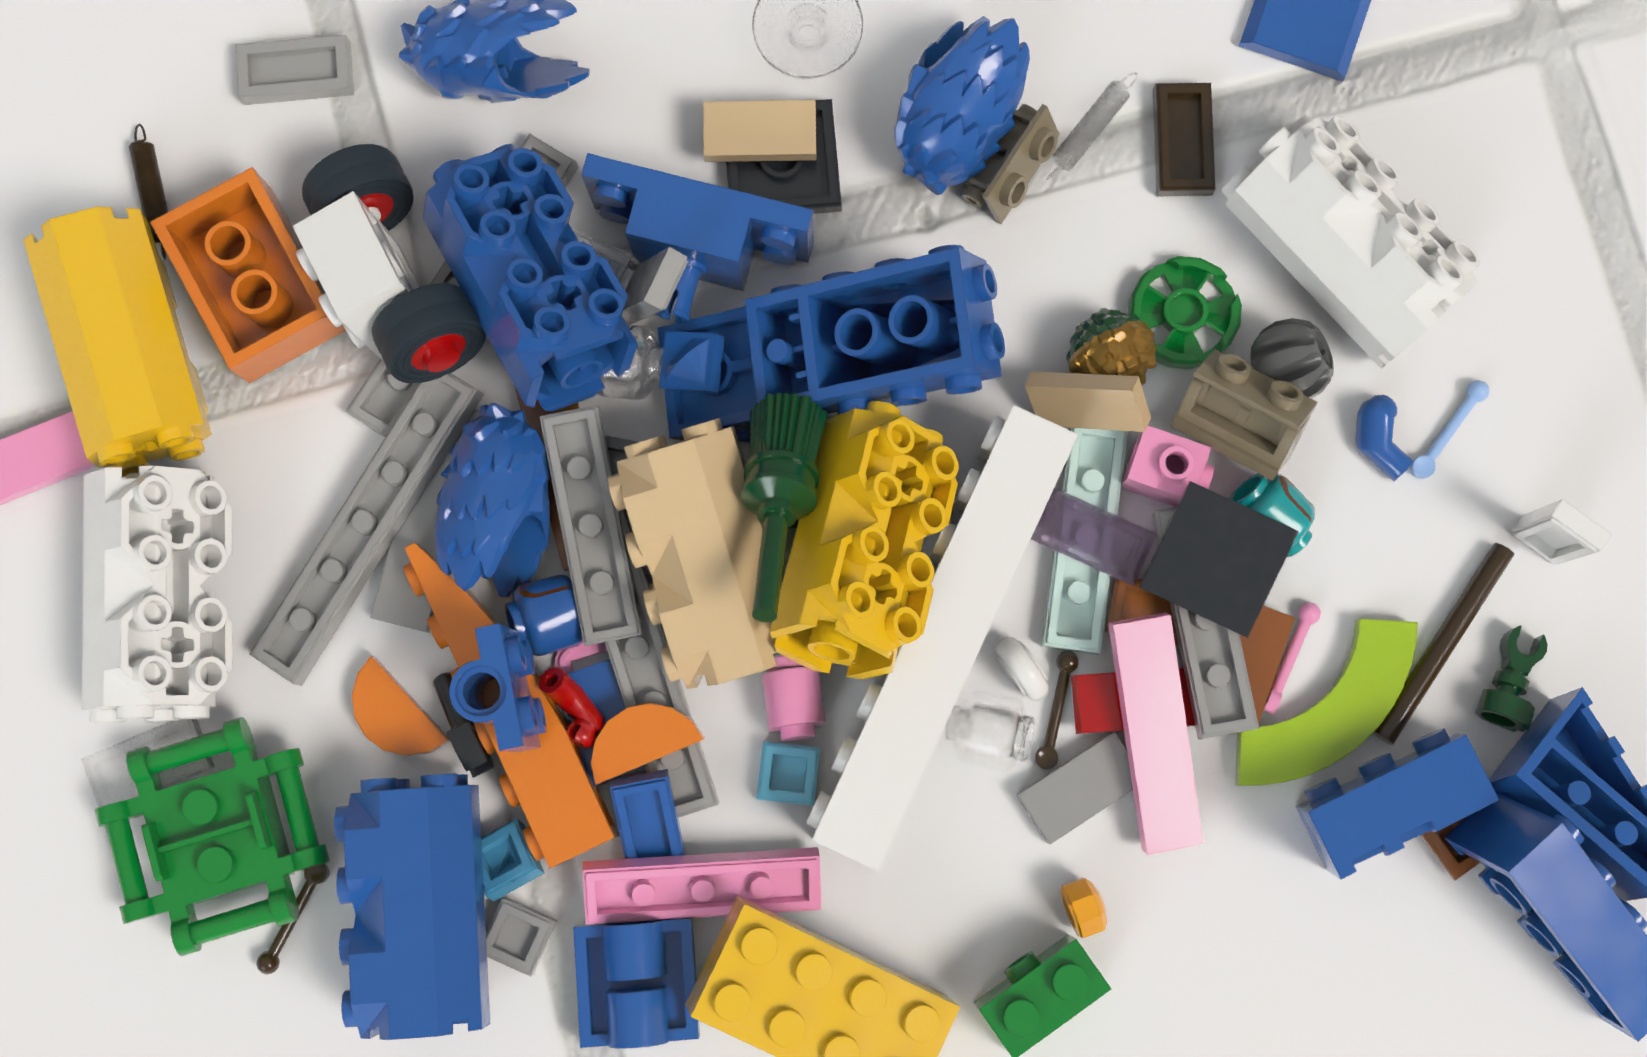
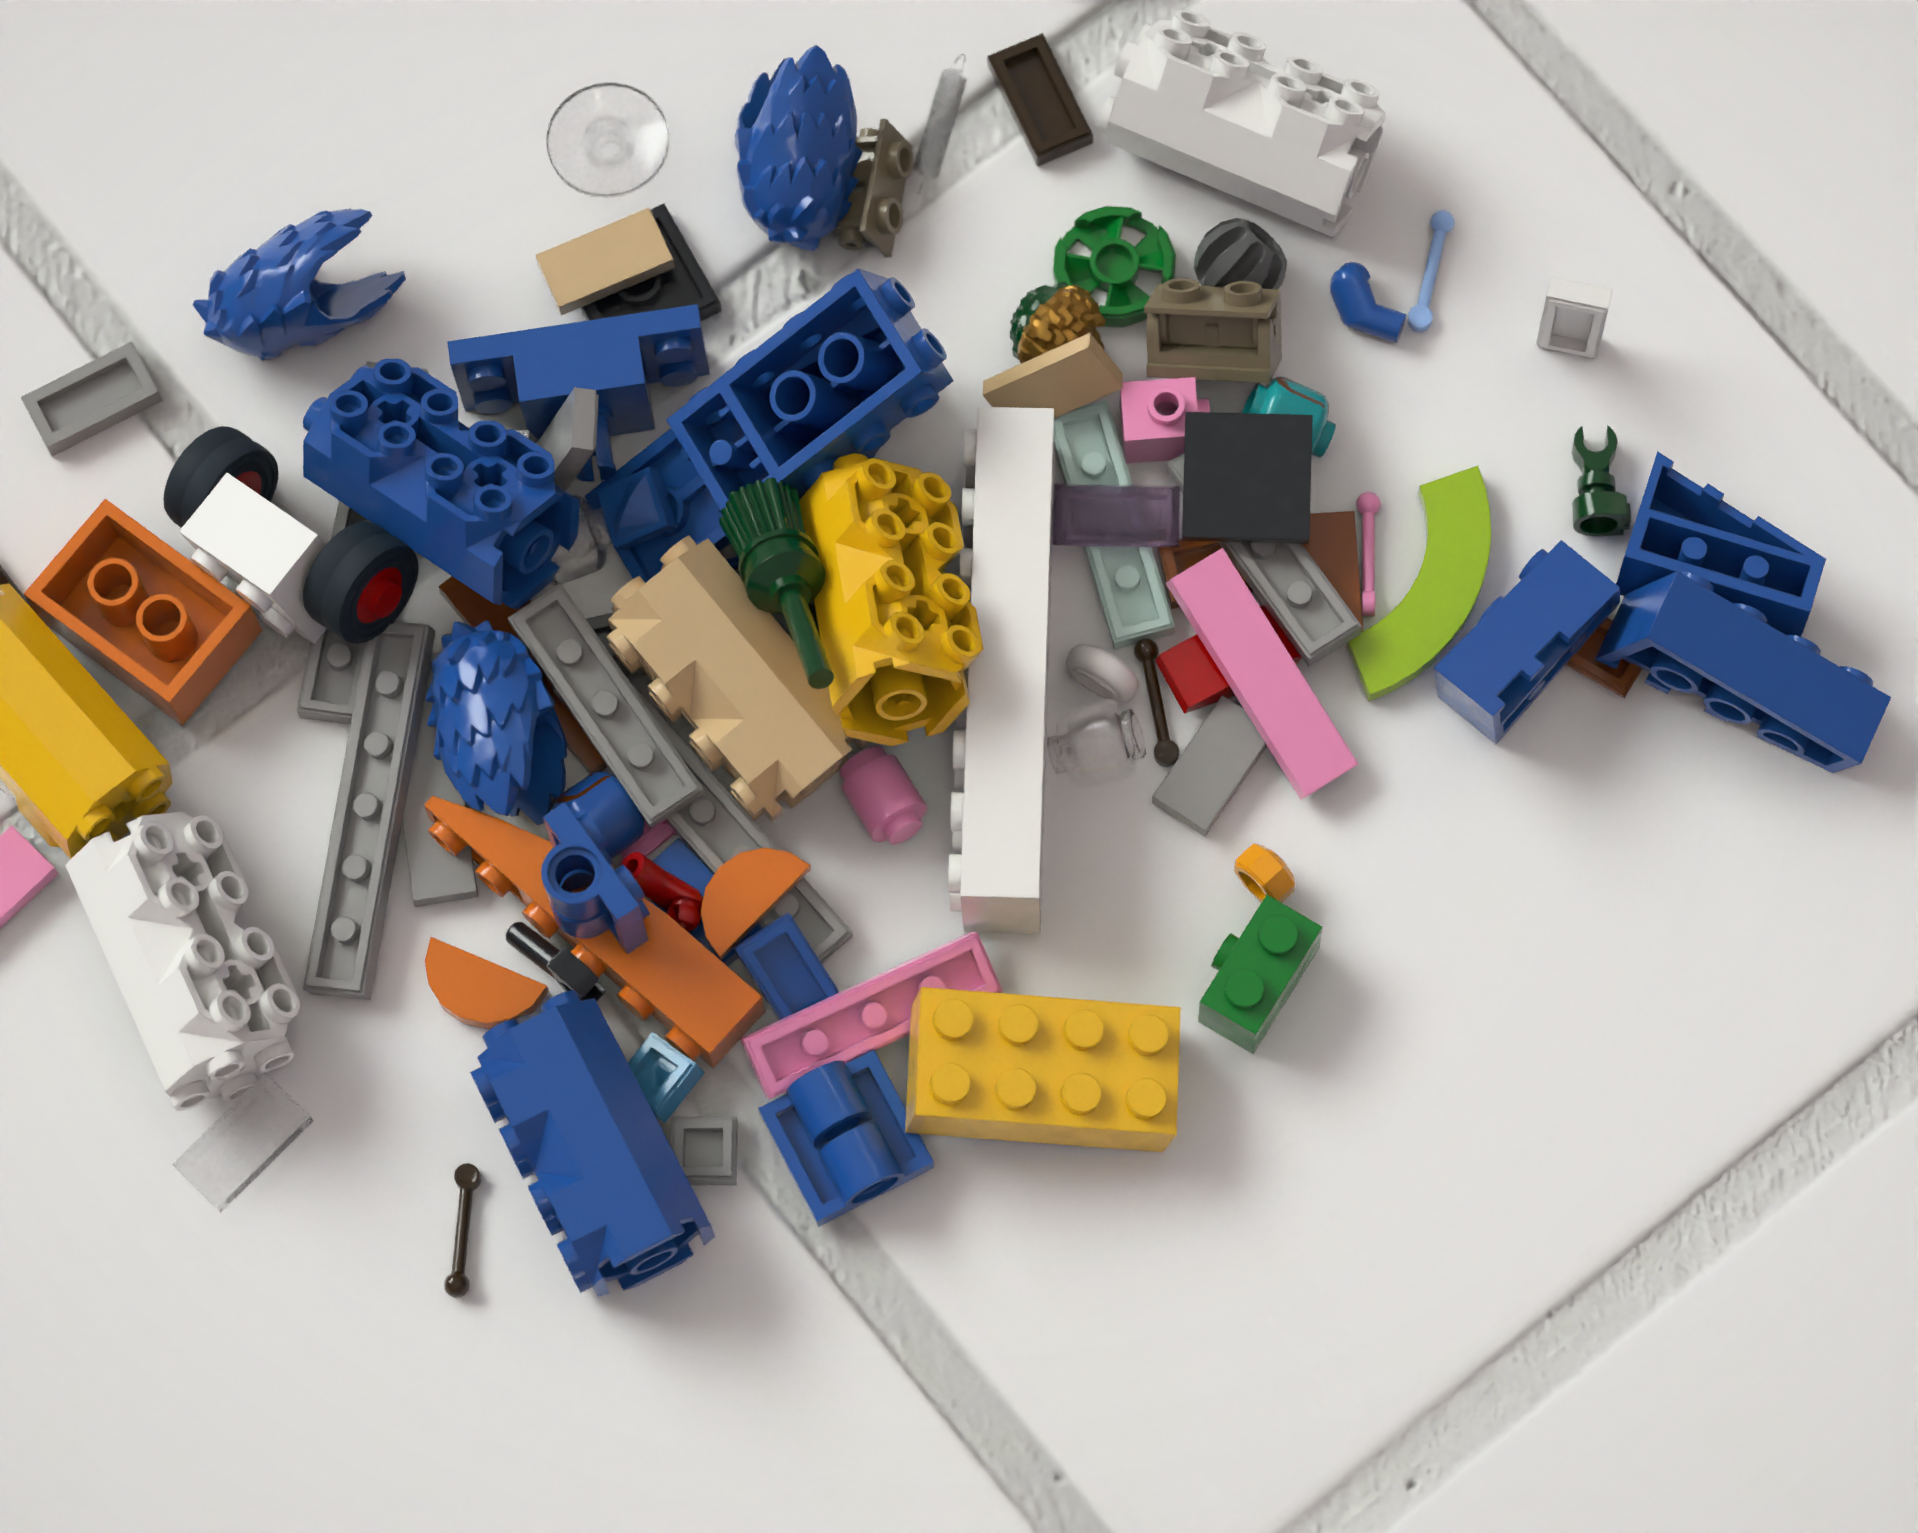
camera: 20 degrees left, 10 degrees down
(212, 836) = (348, 1175): green brick -> none
(788, 773) = (911, 876): medium azure tile -> none
(1445, 642) = (1514, 477): dark brown bar -> none

